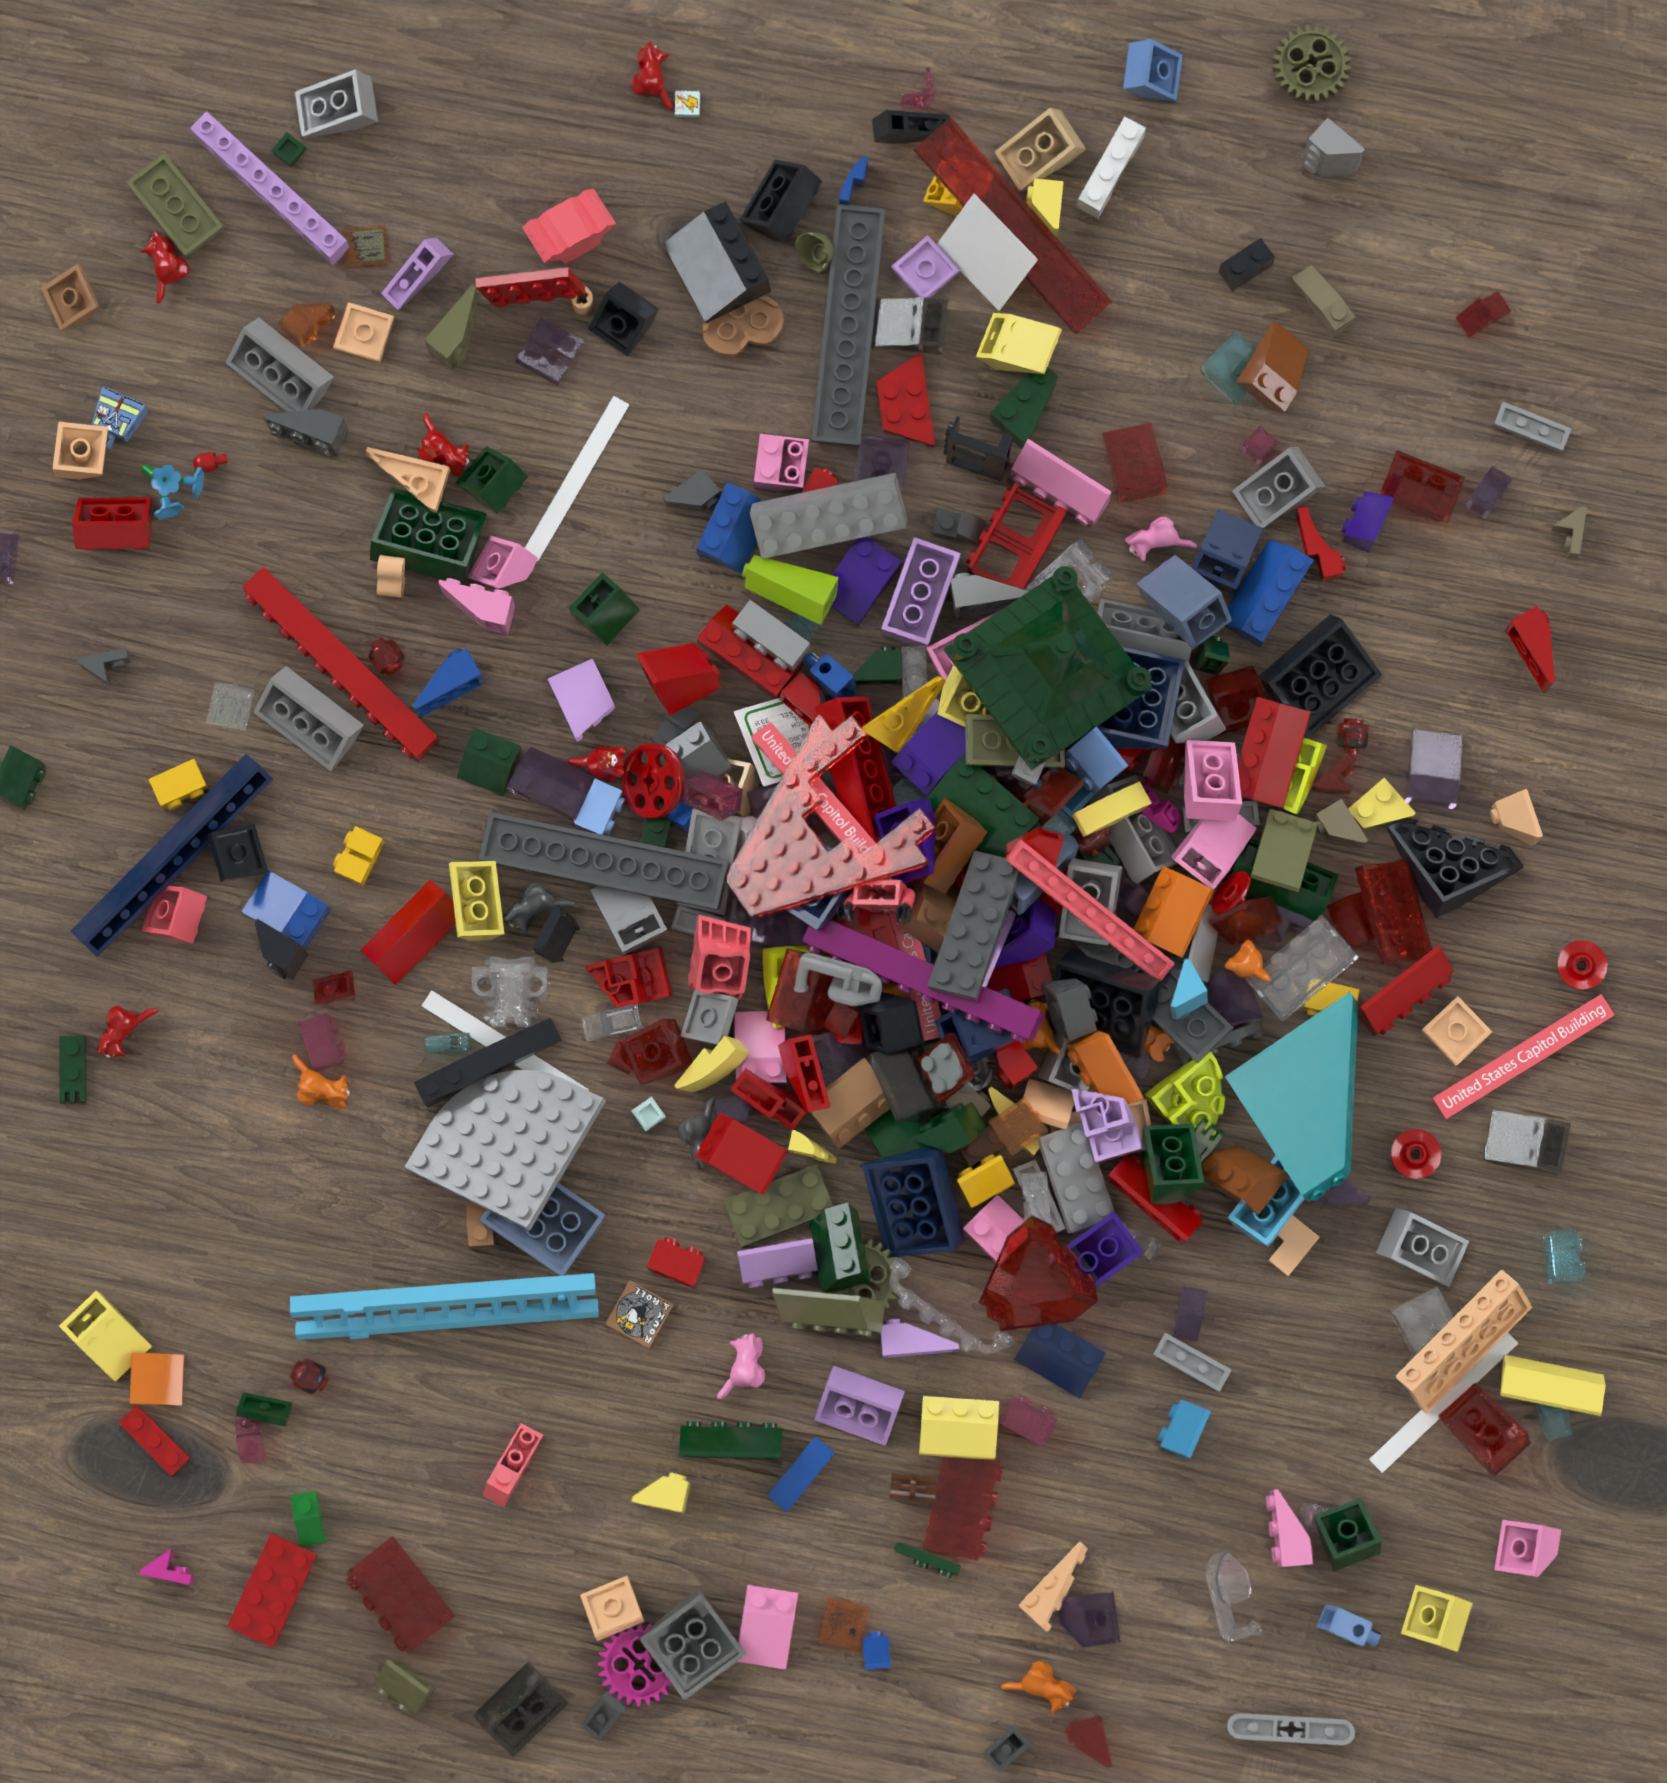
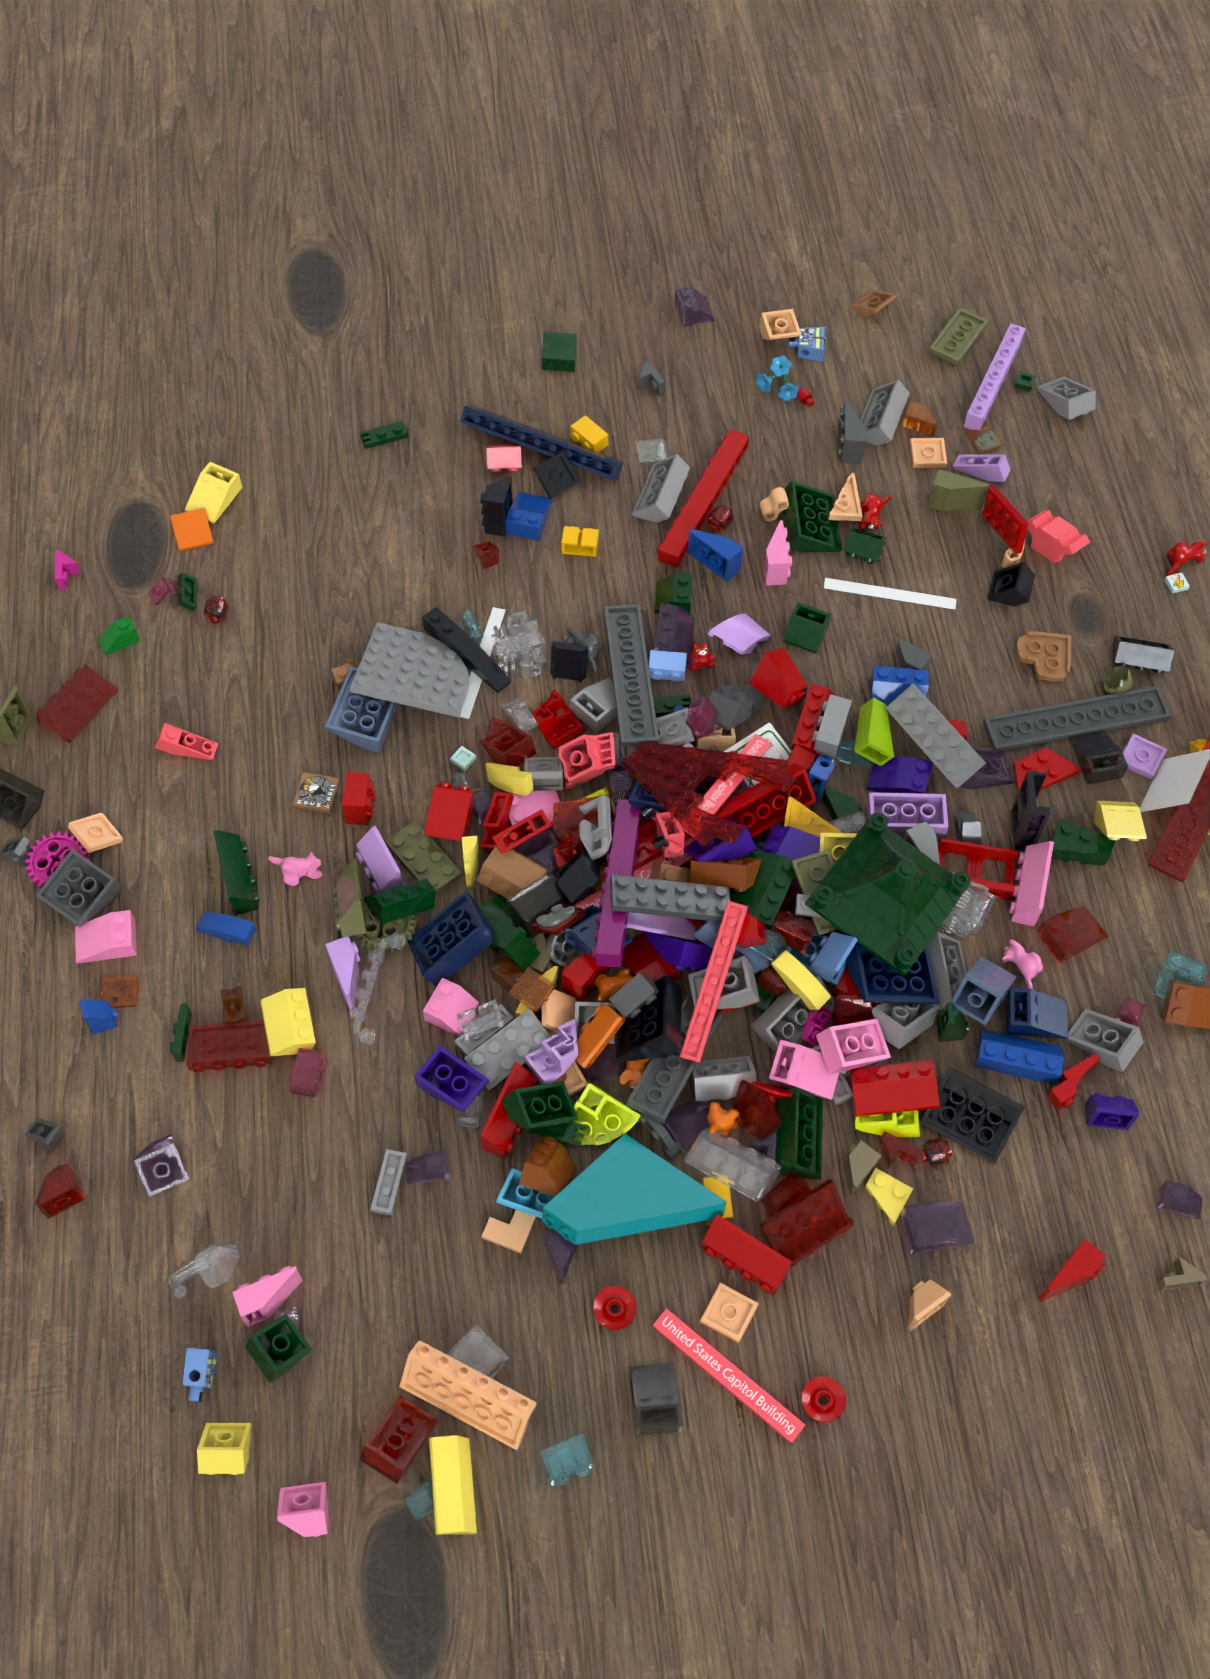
camera: 70 degrees right, 20 degrees down
(112, 523) = (741, 358): red slope -> none
(120, 1024) = (420, 446): red animal -> none
(154, 1440) = (151, 541): red plate -> none
(166, 264) = (919, 340): red animal -> none
(272, 1590) = (64, 632): red plate -> none
(315, 1087) = (414, 559): orange animal -> none
(322, 1042) = (446, 555): clear pink brick -> none
(412, 932) = (539, 586): red slope -> none
(444, 1296) = (292, 668): medium azure ladder -> none
(476, 900) = (573, 605): light yellow slope -> none
(502, 563) = (812, 566): bright pink slope -> none
(549, 351) = (967, 553): clear purple slope -> none
(660, 774) = (699, 685): red wedge -> none
(665, 1493) = (183, 835): light yellow slope -> none
(717, 263) = (1079, 626): slope -> none
(780, 463) = (958, 700): bright pink slope -> none
(855, 177) = (1182, 691): blue slope -> none
(859, 1405) = (288, 951): lavender slope -> none
(985, 1181) = (484, 982): yellow slope -> none
(1036, 1280) = (415, 1036): clear red panel -> none
(1040, 1682) = (101, 1144): orange animal -> none
(1053, 1588) = (179, 1129): light nougat wing -> none
(1060, 1357) = (366, 1081): dark blue slope -> none
(1131, 897) = (740, 1024): slope -> none
(1173, 911) = (740, 1053): orange slope -> none
(1184, 1429) = (331, 1190): dark azure slope -> none
(1189, 992) = (678, 1071): medium azure slope -> none
(1235, 696) = (925, 1047): clear red slope -> none
(1283, 850) = (822, 1122): olive slope -> none
(1315, 1731) = (107, 1374): light grey piece -> none
(1422, 487) = (1158, 1146): clear red slope -> none
(1422, 1246) = (538, 1338): light grey slope -> none
(1422, 1422) = (391, 1386): white sticker -> none
(1450, 868) = (862, 1265): black slope -> none

